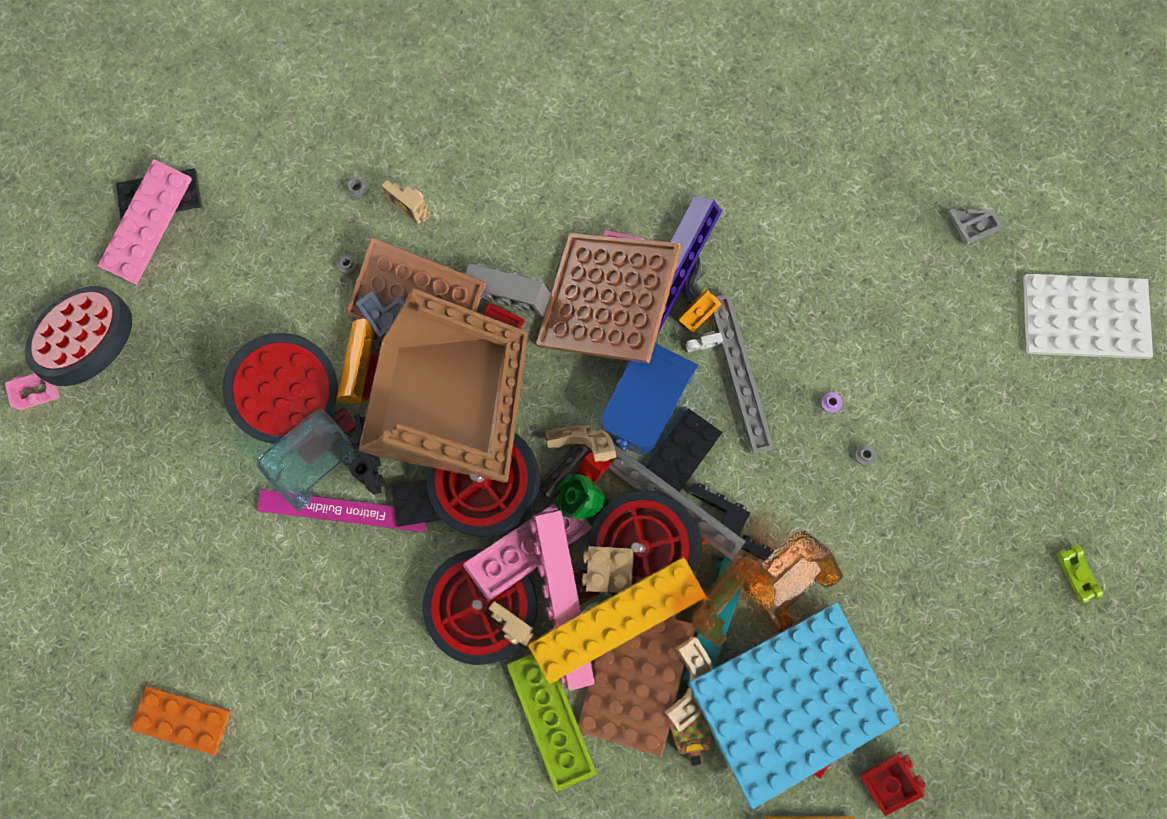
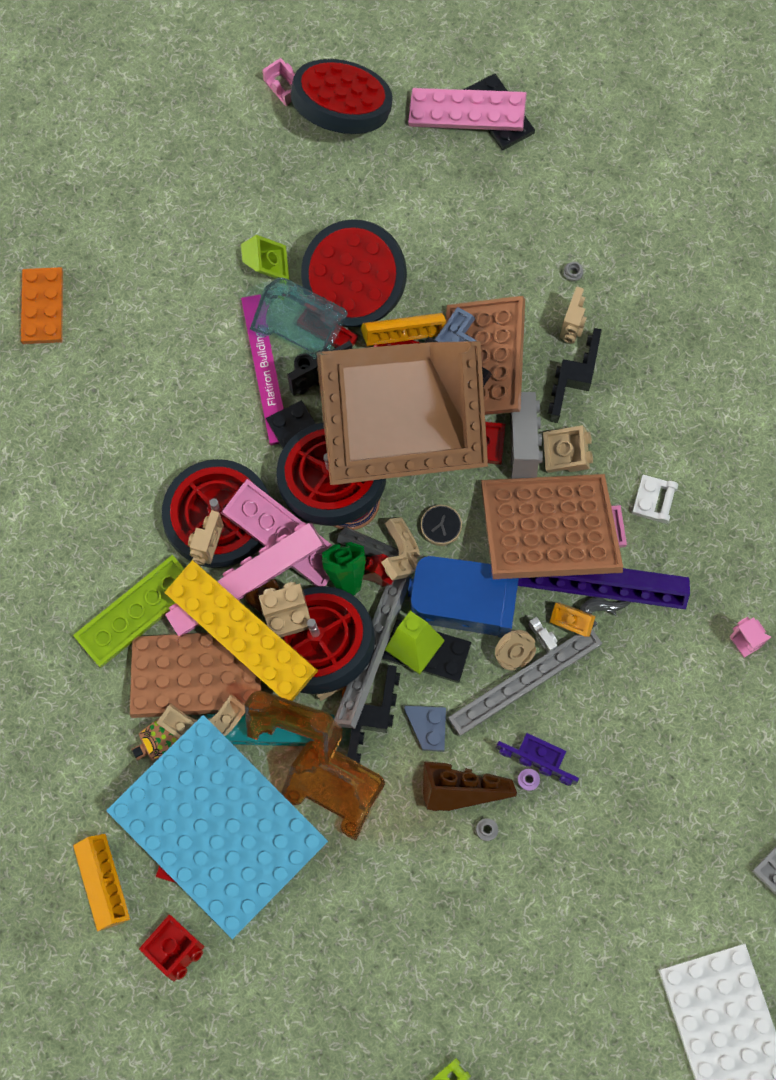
camera: 70 degrees right, 5 degrees down
(224, 471) = (265, 256): none -> lime slope
(347, 269) = (495, 294): light grey plate -> none
(463, 223) = (574, 375): none -> black bracket
(534, 256) = (567, 449): none -> tan plate
(565, 397) = (441, 525): none -> black tile
(604, 204) = (648, 496): none -> white plate
(676, 459) = (414, 643): none -> lime slope
(712, 370) = (515, 649): none -> tan tile
(754, 474) = (428, 726): none -> sand blue wing
(765, 166) = (749, 636): none -> bright pink window
(812, 383) = (541, 755): none -> dark purple bracket
(821, 470) = (453, 789): none -> reddish brown wedge

